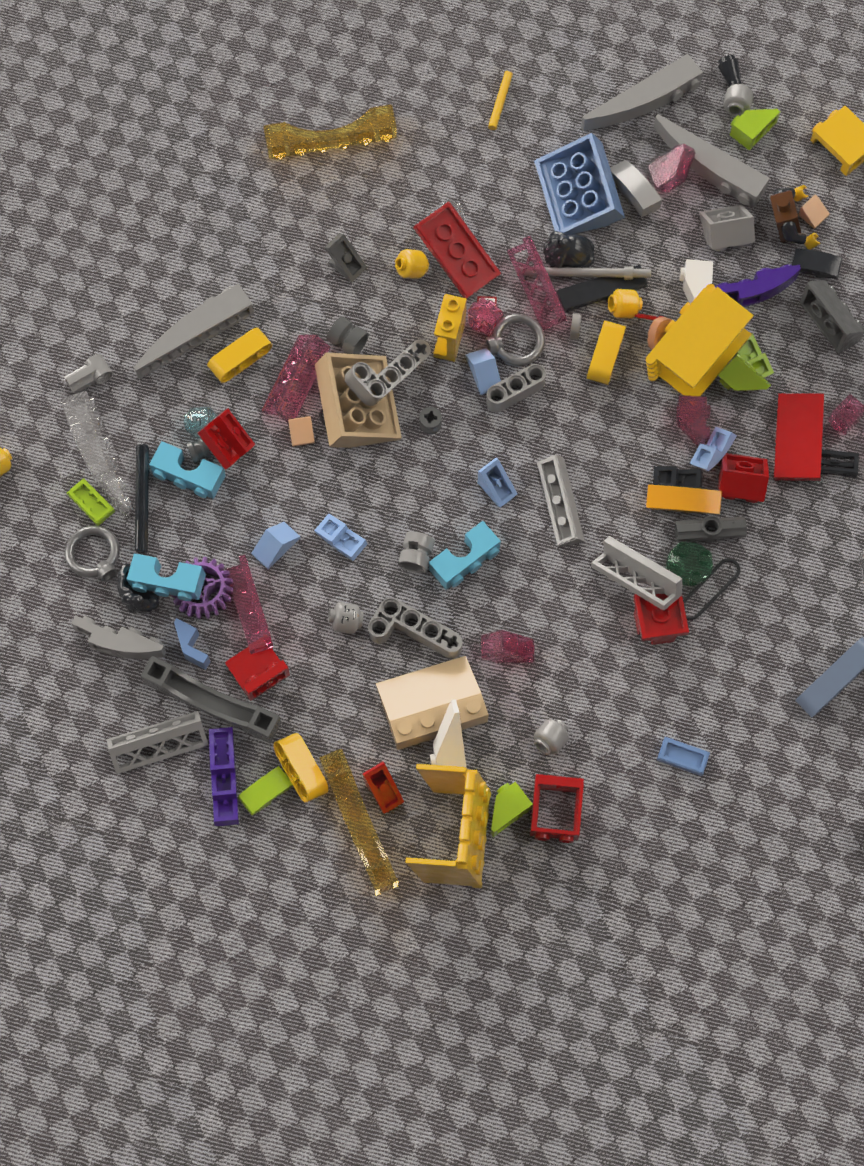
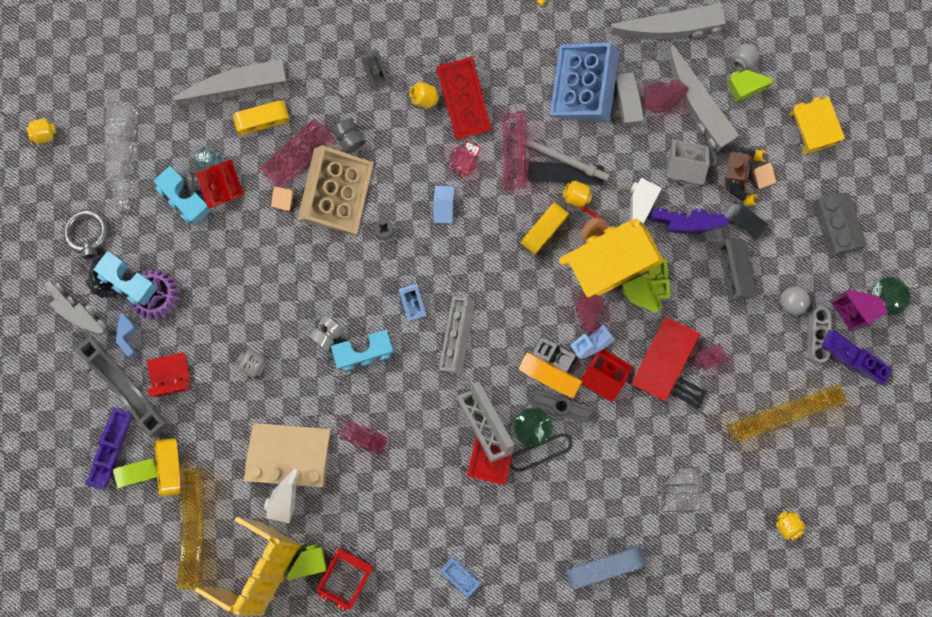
camera: 25 degrees right, 10 degrees up
(90, 502) = (100, 191): lime plate -> none
(94, 371) = (144, 87): light grey piece -> none
(141, 498) = (139, 204): black axle -> none
(156, 734) = (70, 397): light grey fence -> none
(249, 607) = (183, 325): clear pink fence -> none
(274, 544) = (225, 281): light blue slope -> none
(340, 537) = (276, 296): light blue slope -> none
(383, 787) = (221, 509): red slope -> none
(394, 371) = (370, 179): light grey beam -> none
(417, 632) = (301, 396): light grey beam -> none
(450, 327) = (428, 161): yellow panel -> none
(496, 346) = (461, 190): flat silver piece -> none
(521, 379) = (469, 224): light grey beam -> none
(551, 736) = (365, 521): light grey head -> none
(568, 250) = (552, 132): black hair -> none
(575, 326) = (530, 196): light grey tile -> none
(730, 69) = (750, 29): black cone -> none

